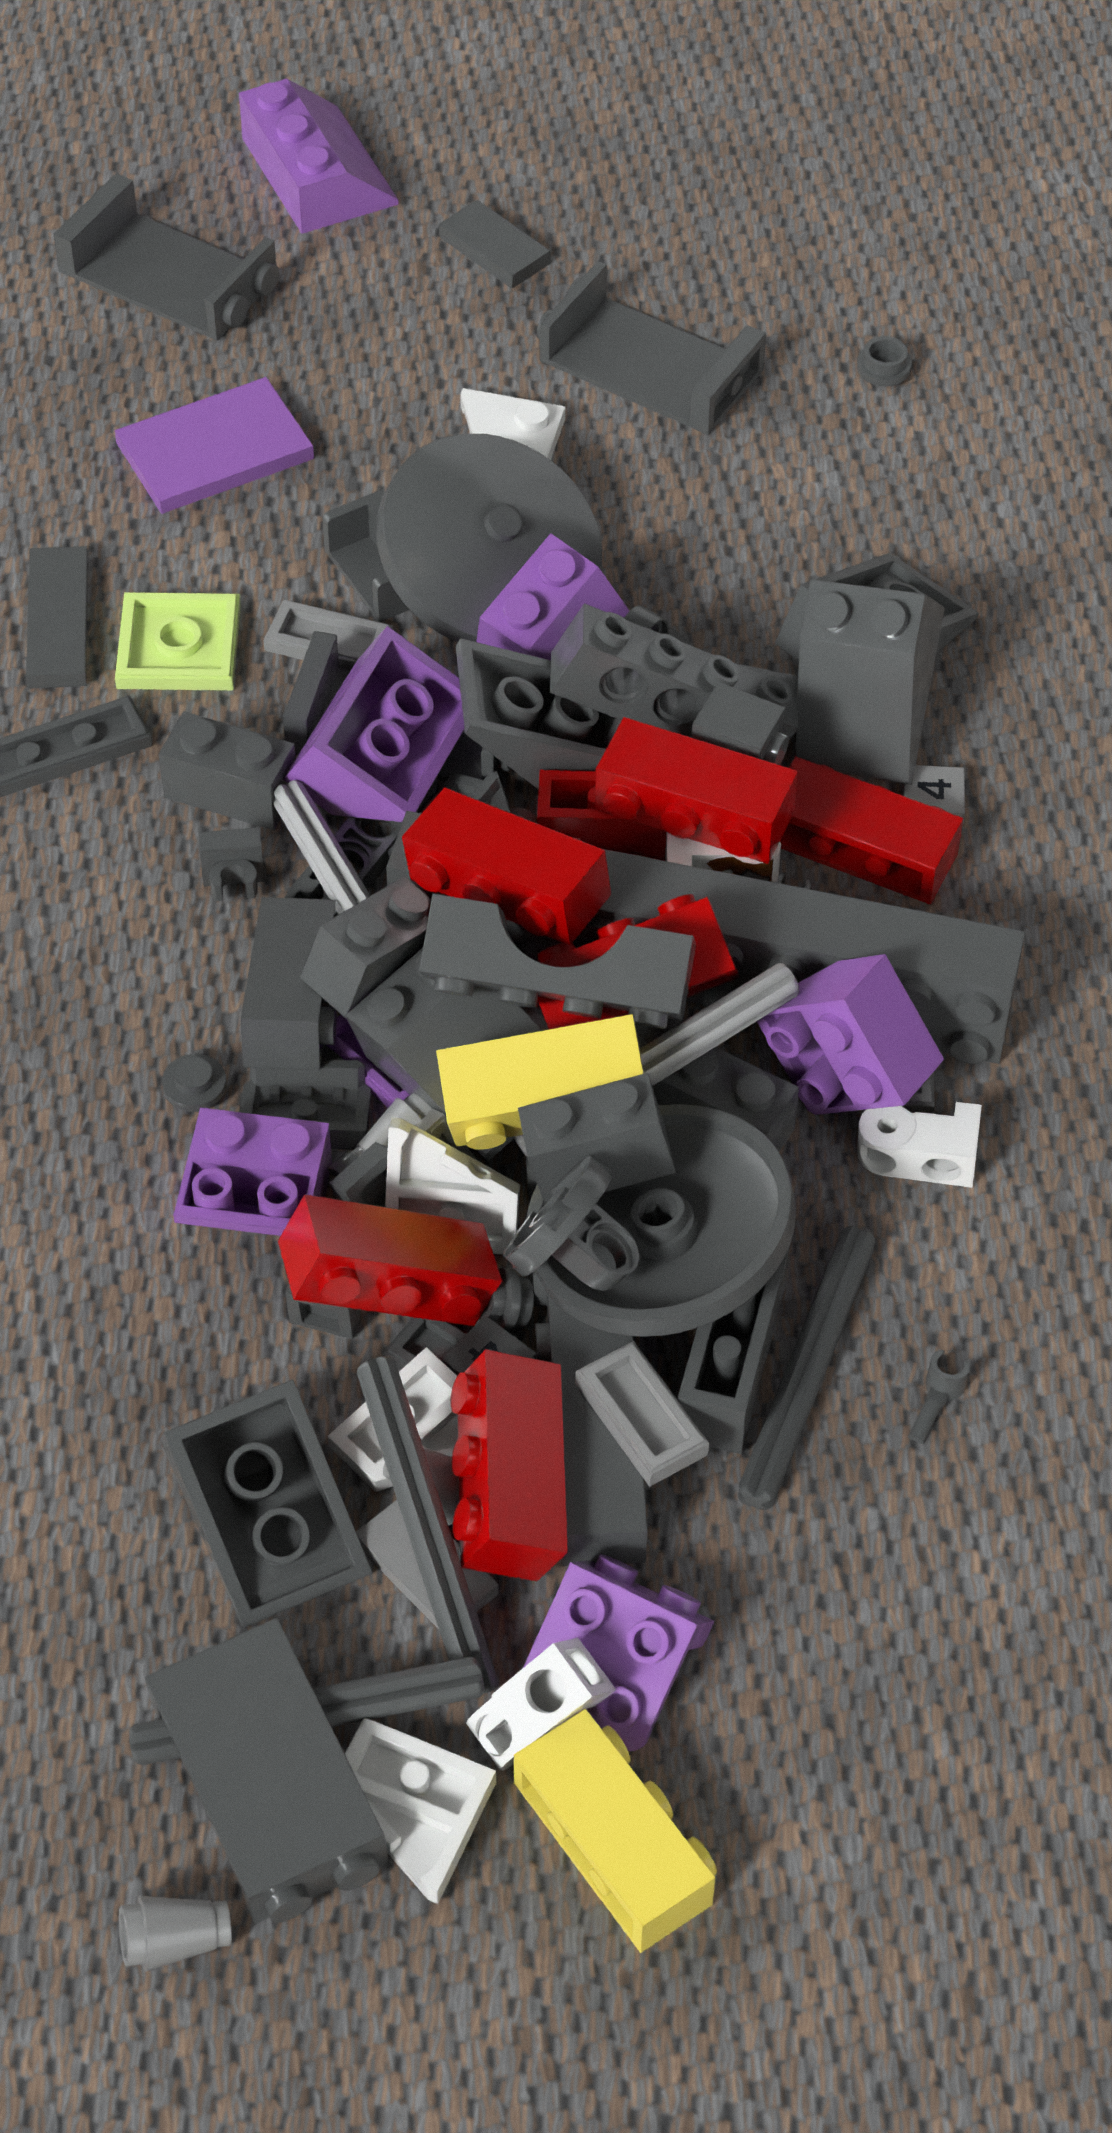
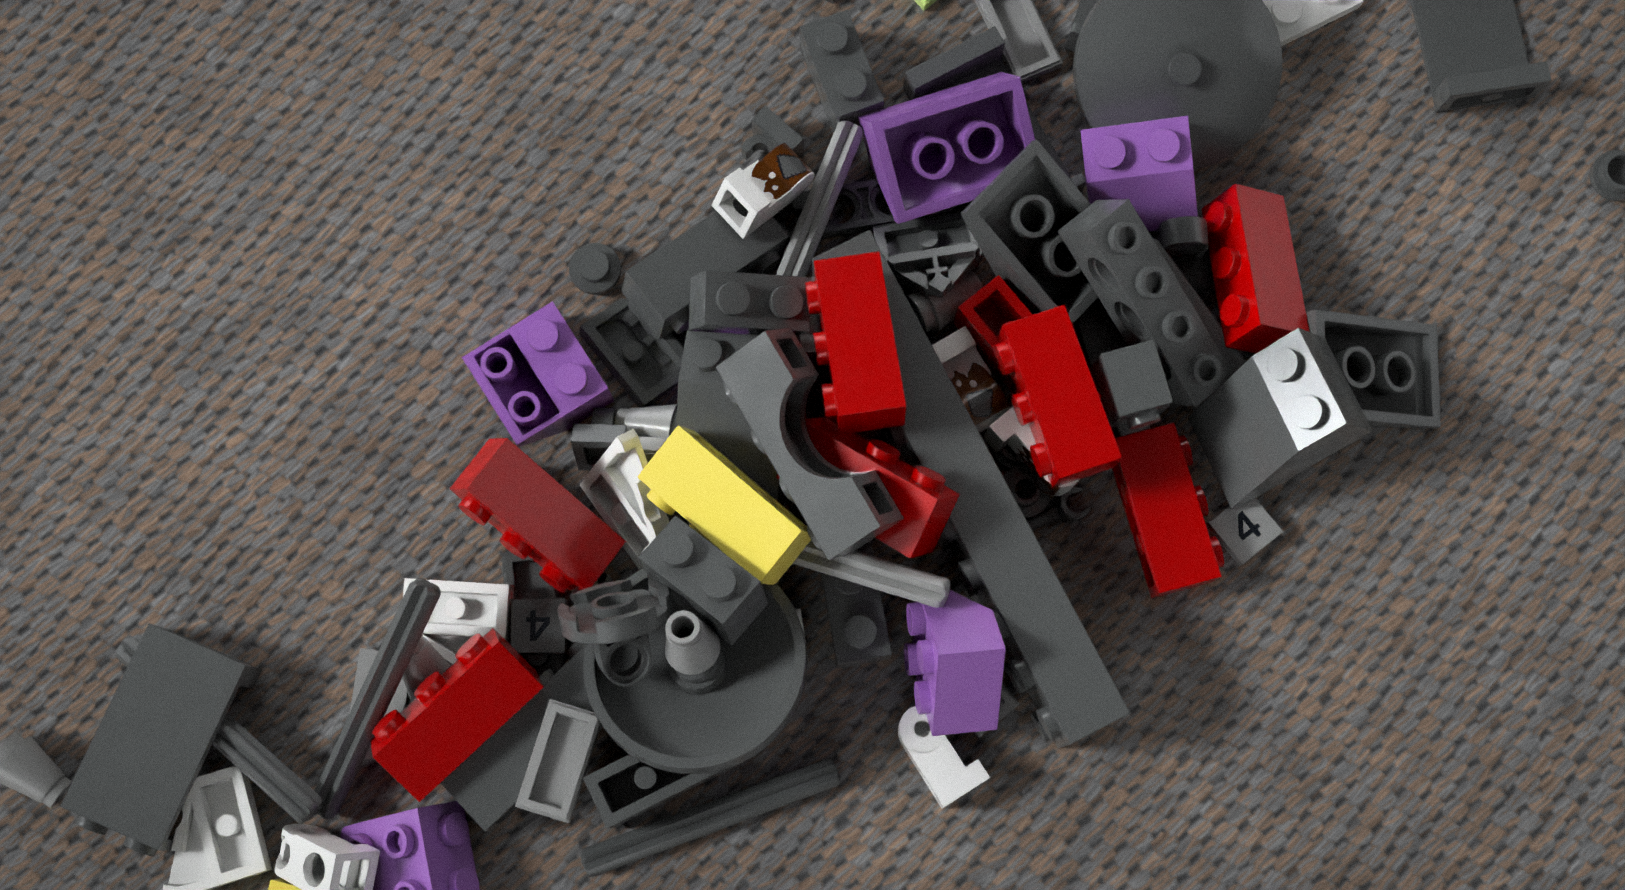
camera: 50 degrees right, 25 degrees up
(266, 1503) = (334, 576): dark grey slope -> none
(276, 873) = (762, 189): none -> white leg
(644, 1183) = (690, 643): none -> light grey cone
(721, 612) = (1254, 268): none -> red brick

